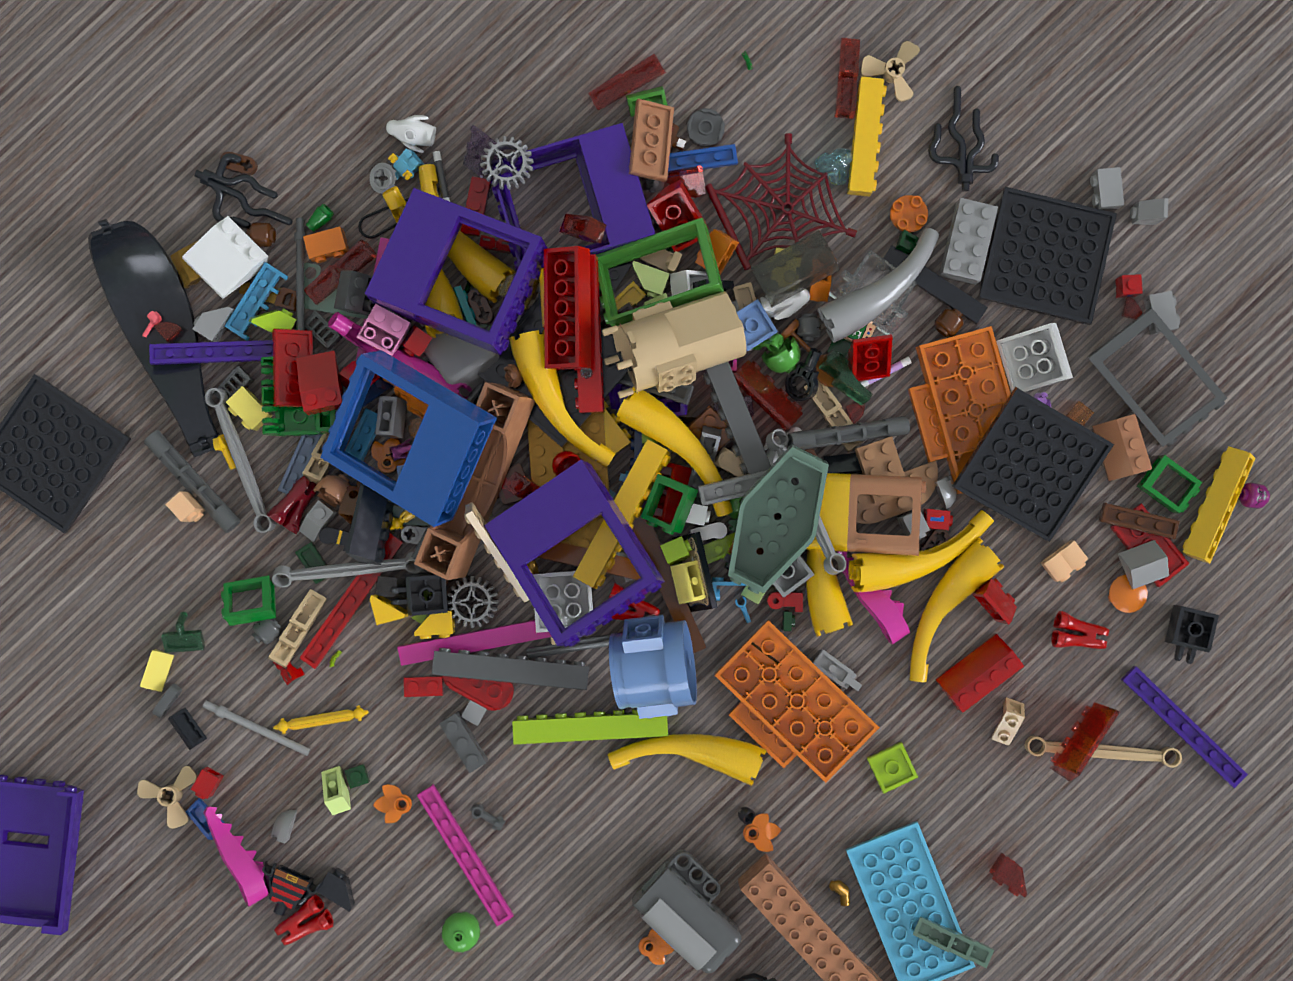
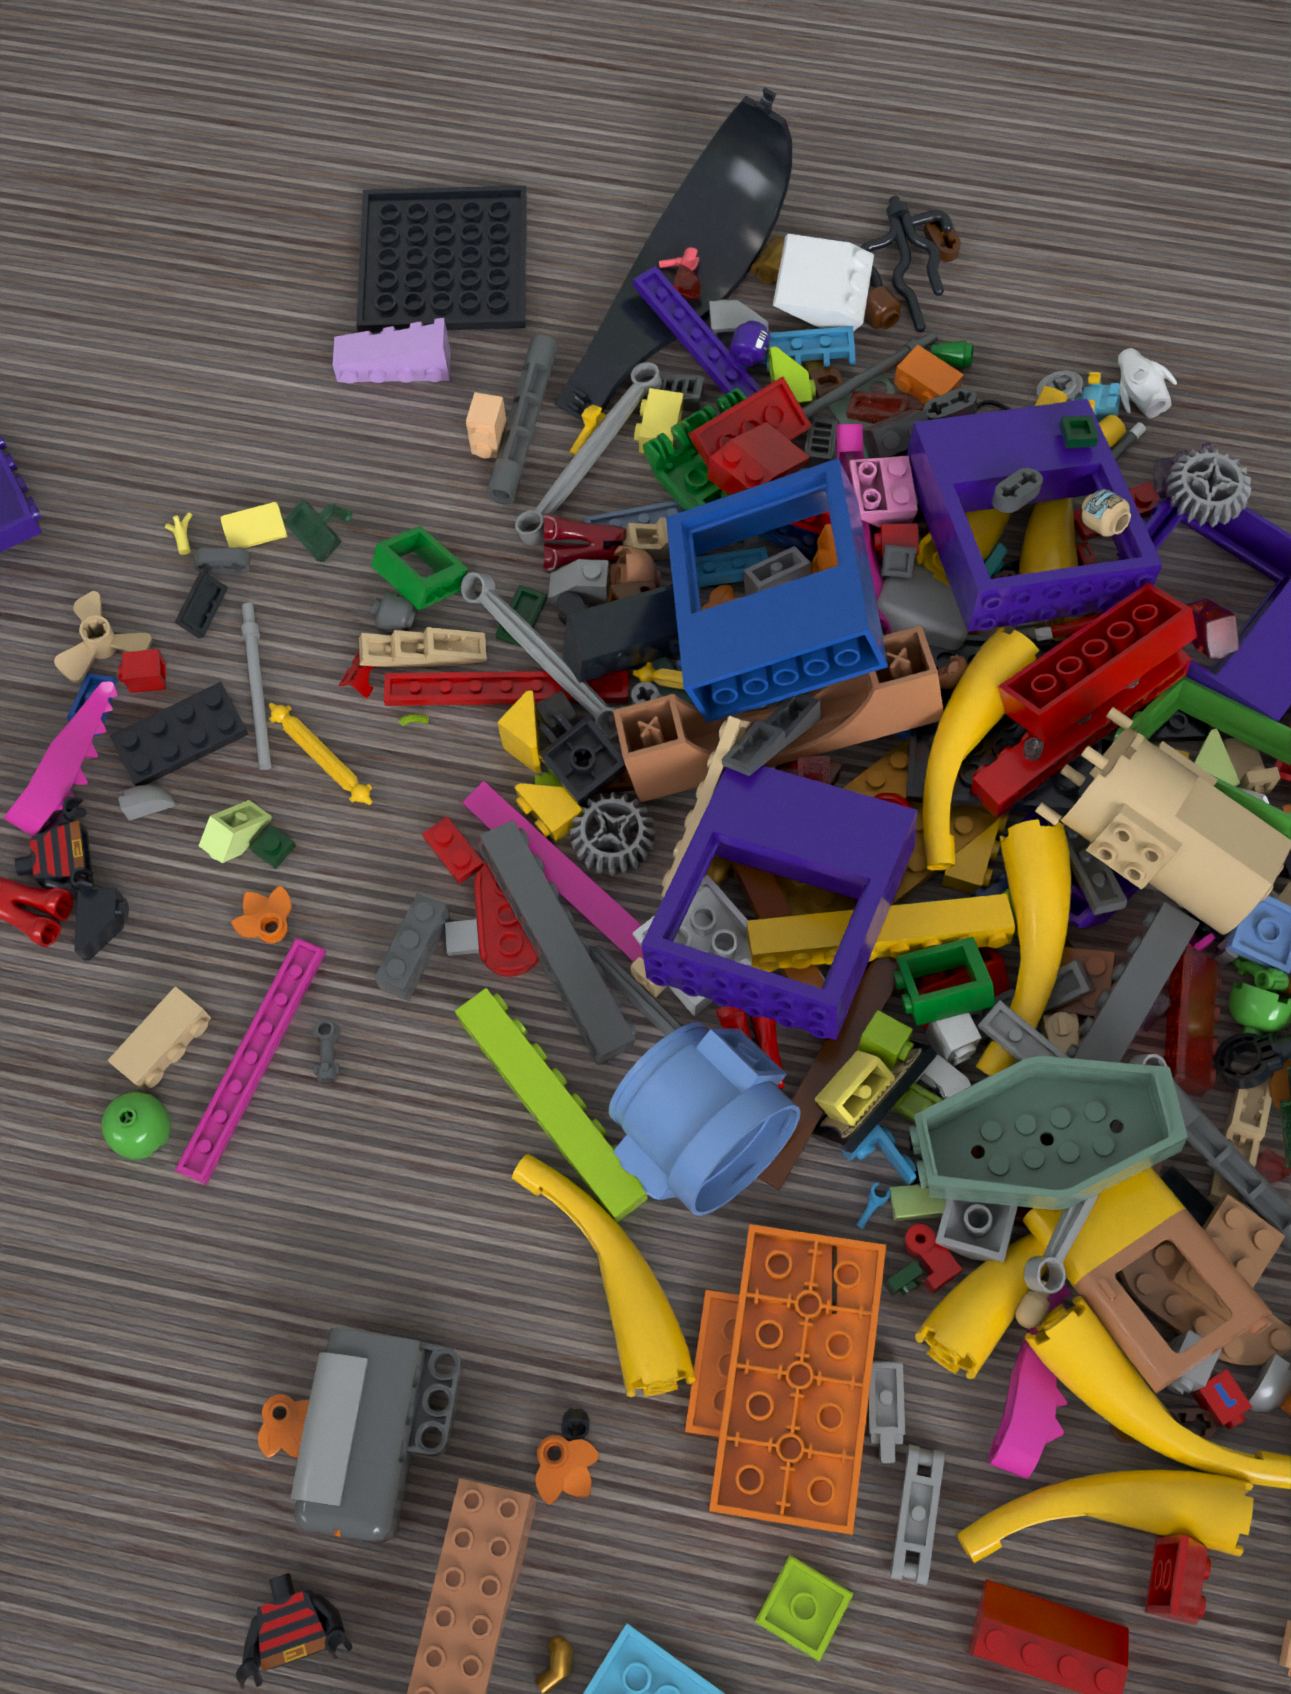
camera: 55 degrees right, 20 degrees down
(100, 526) = (394, 355): none -> lavender wedge
(130, 711) = (180, 533): none -> light yellow bar
(237, 328) = (750, 343): none -> dark purple head
(257, 785) = (179, 735): none -> black plate
(354, 249) = (951, 404): none -> dark grey beam
(425, 895) = (160, 1039): none -> tan brick
(429, 352) = (898, 561): none -> dark grey tile
(433, 214) = (1078, 431): none -> dark green plate
(450, 275) = (1022, 494): none -> dark grey beam
(486, 496) = (770, 737): none -> dark grey slope
(493, 242) = (1106, 513): none -> tan head
(536, 285) = (1063, 628): none -> red bar
(843, 578) = (1032, 1308): none -> tan cylinder
(889, 690) = (917, 1515): none -> light grey plate

